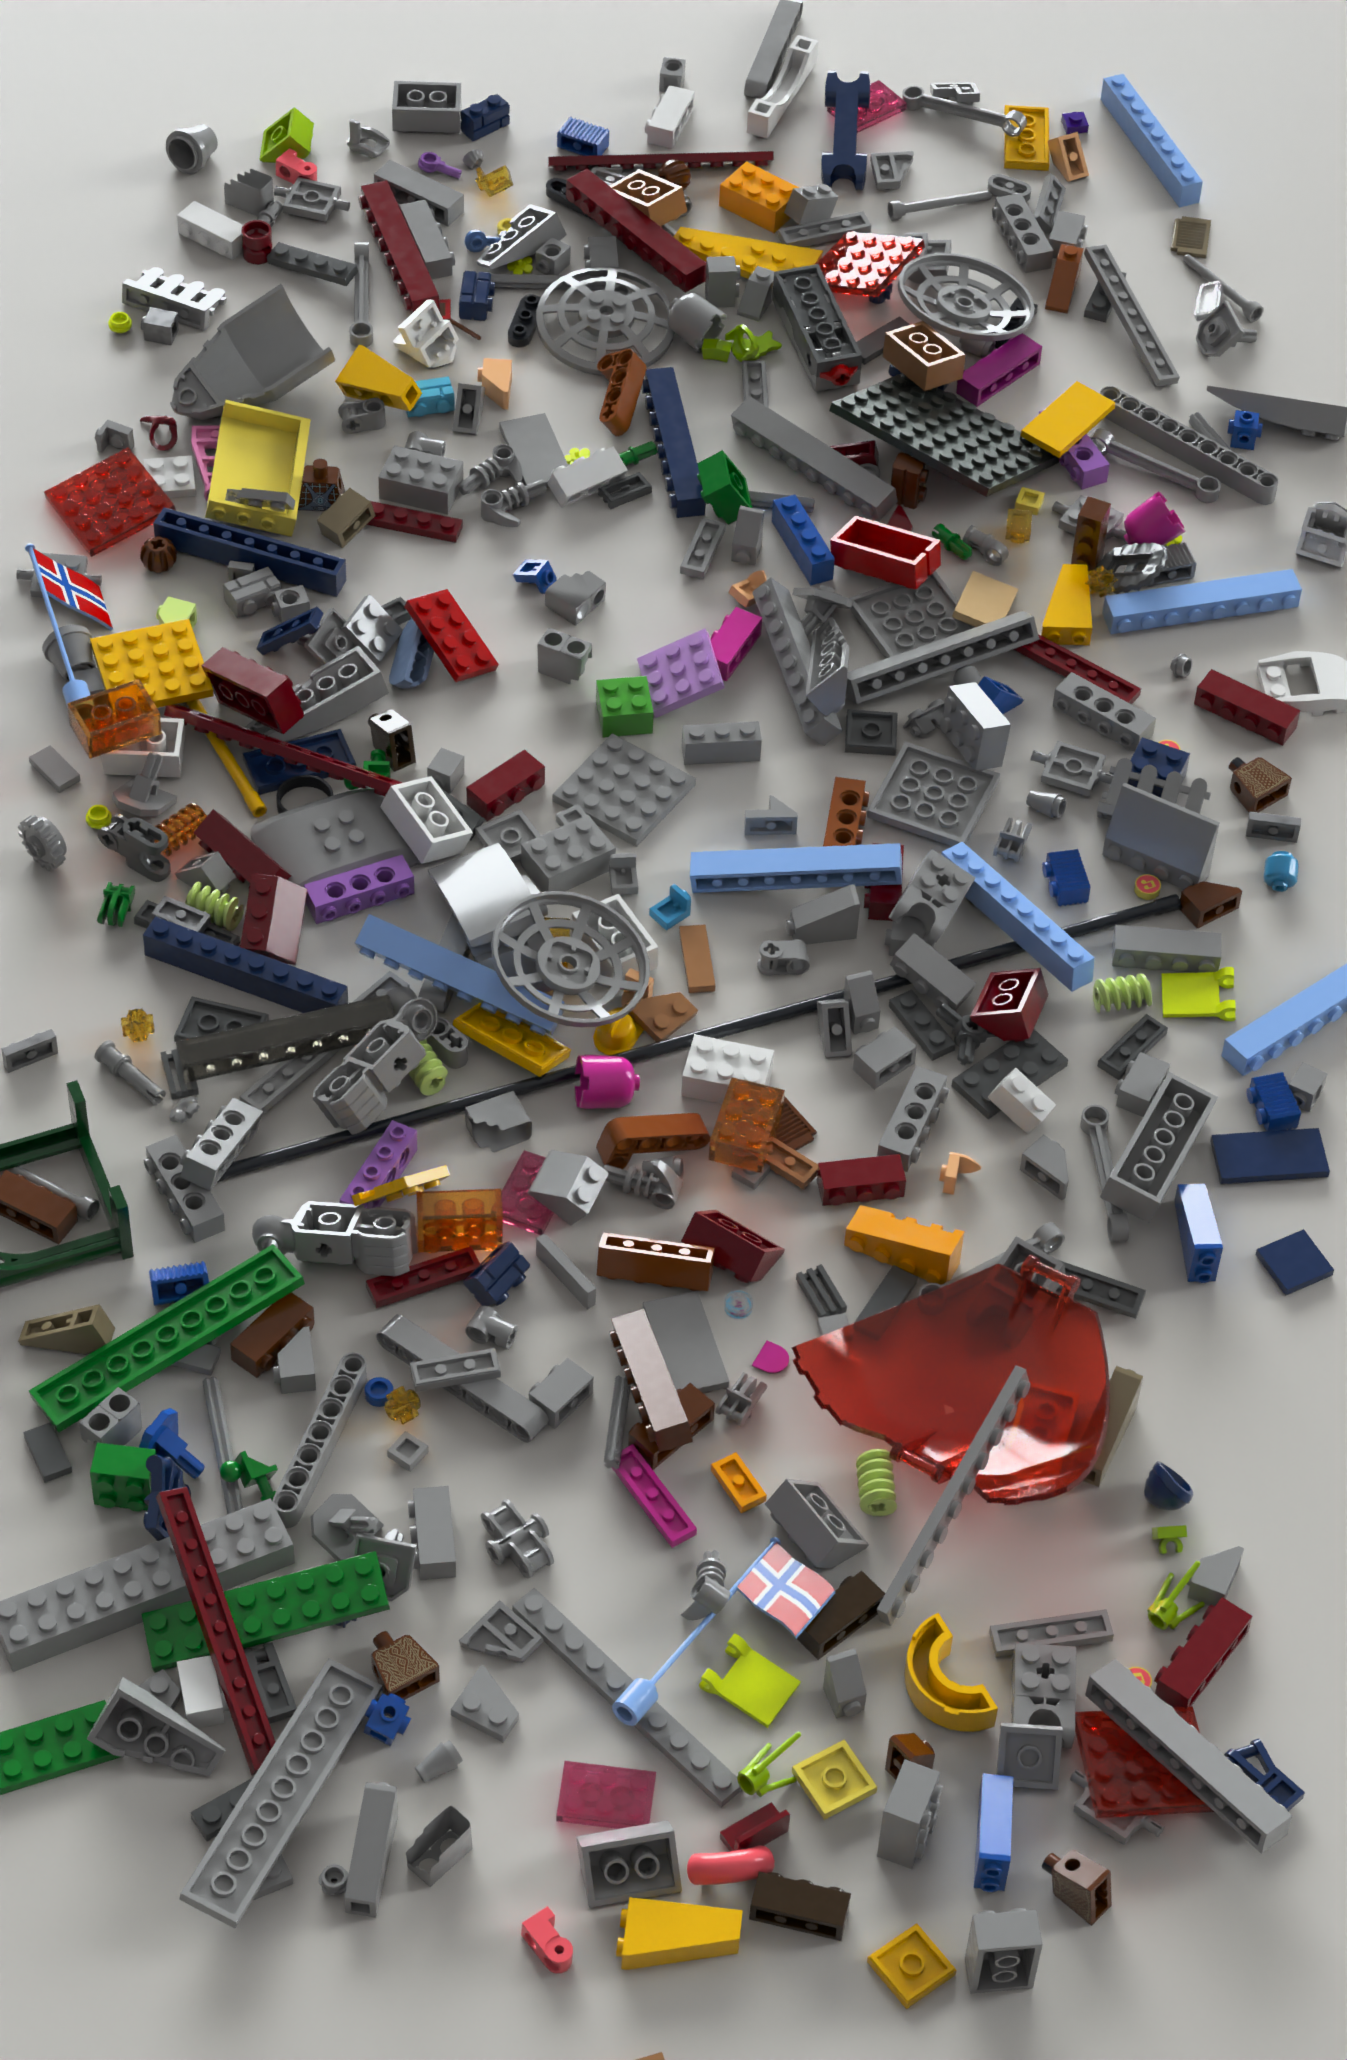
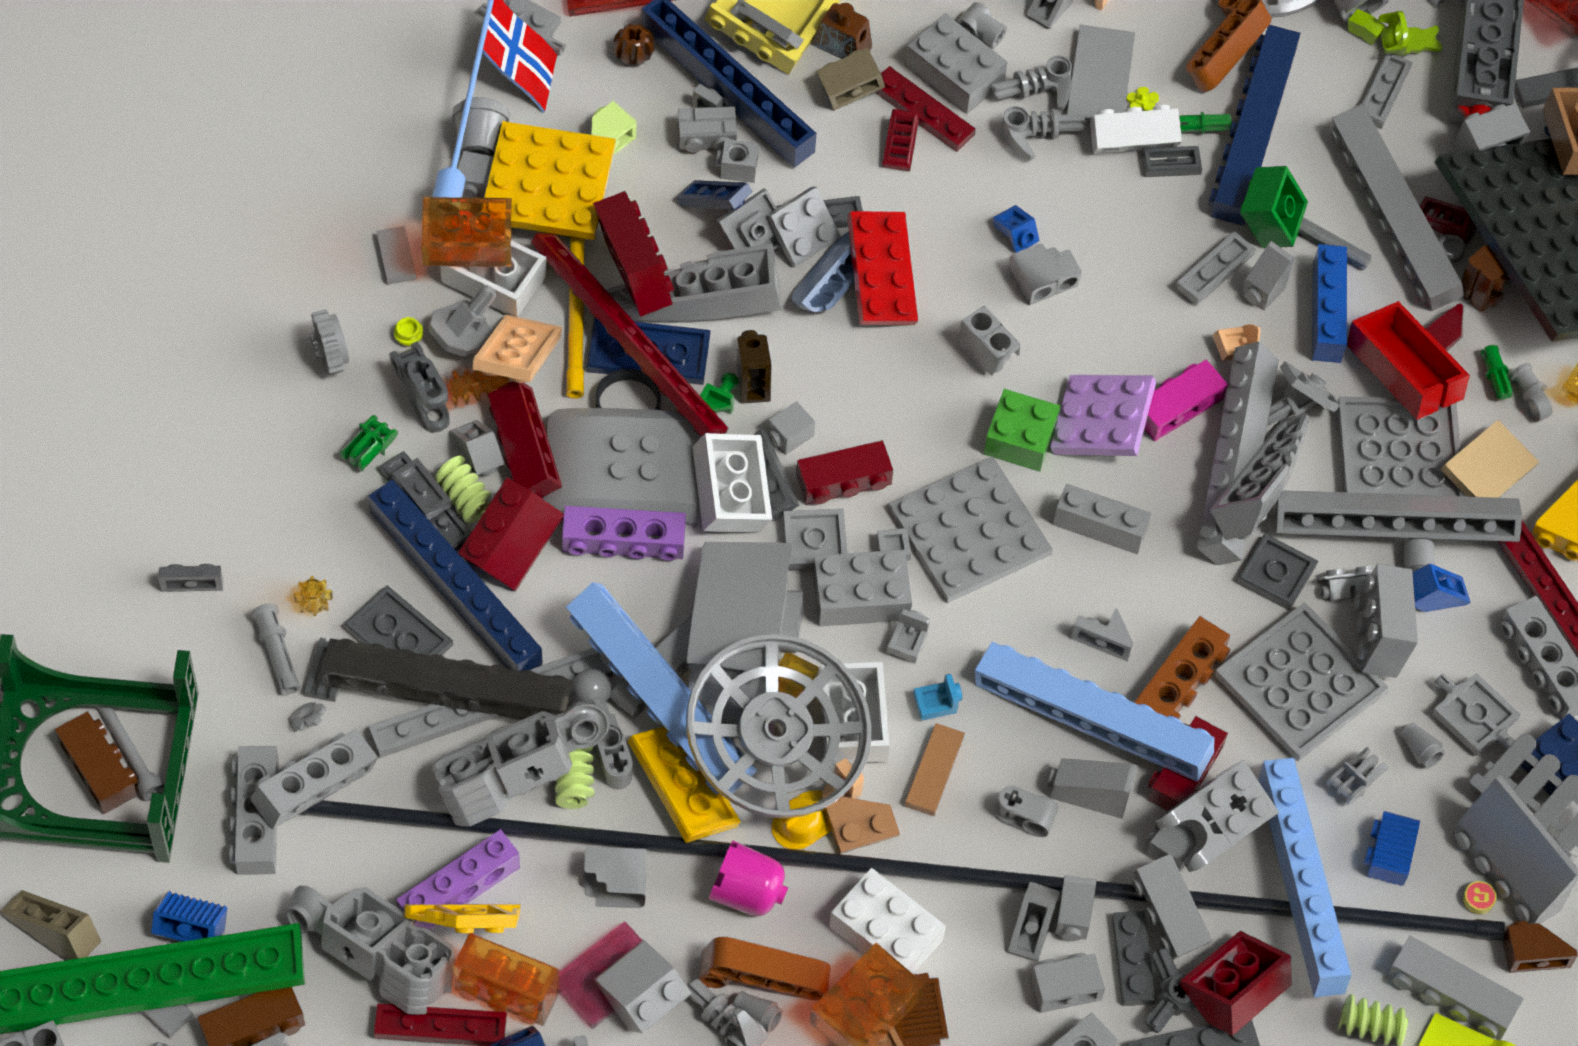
camera: 25 degrees right, 10 degrees up
(200, 790) = (517, 348): none -> light nougat plate
(404, 534) = (905, 123): none -> dark red slope
(856, 376) = (1496, 128): none -> light grey brick

